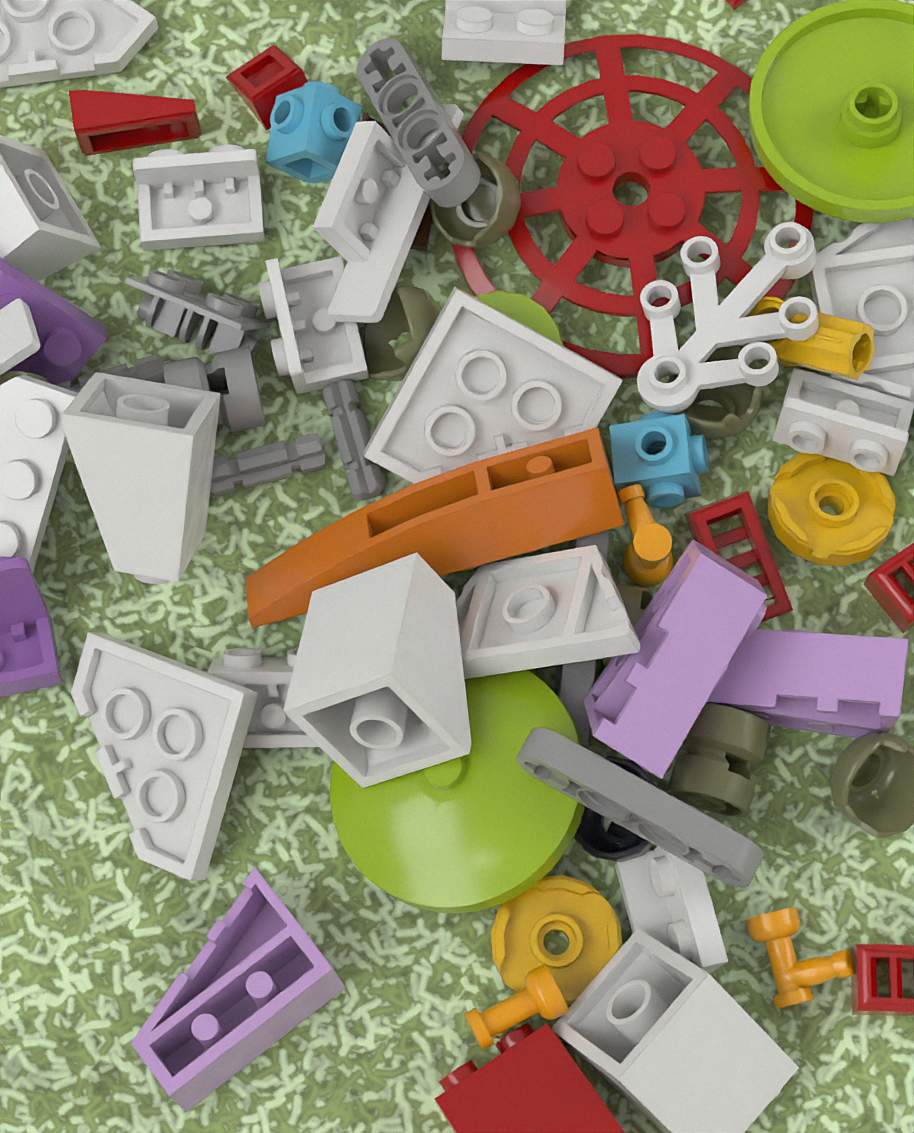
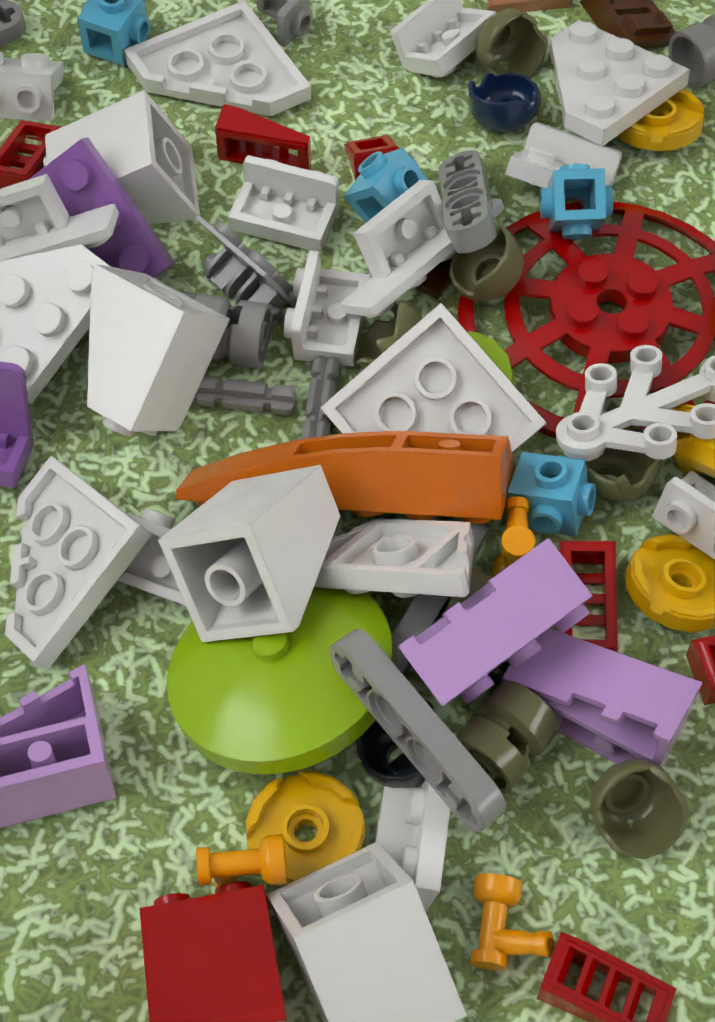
camera: 20 degrees right, 15 degrees down
(566, 85) = (579, 184): none -> medium azure brick

